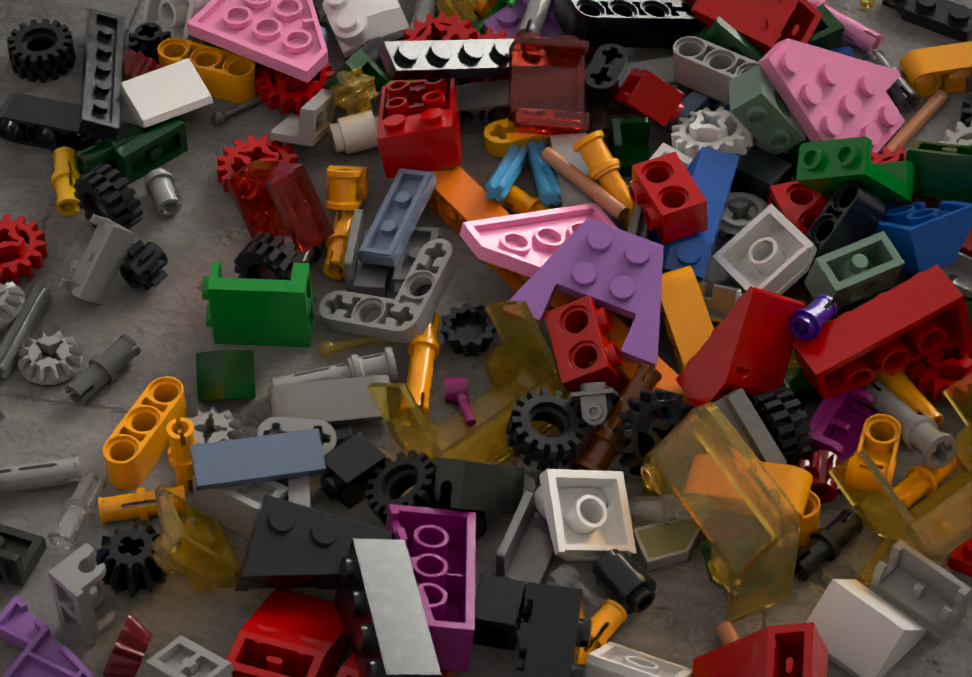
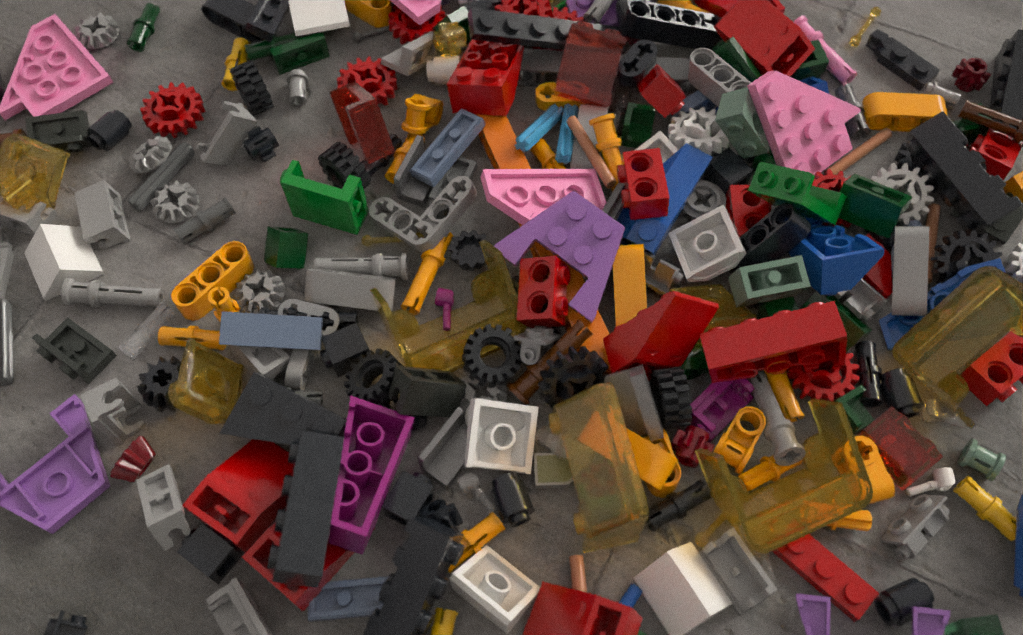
camera: 15 degrees right, 15 degrees up
(808, 321) = (715, 323): dark purple pin -> none

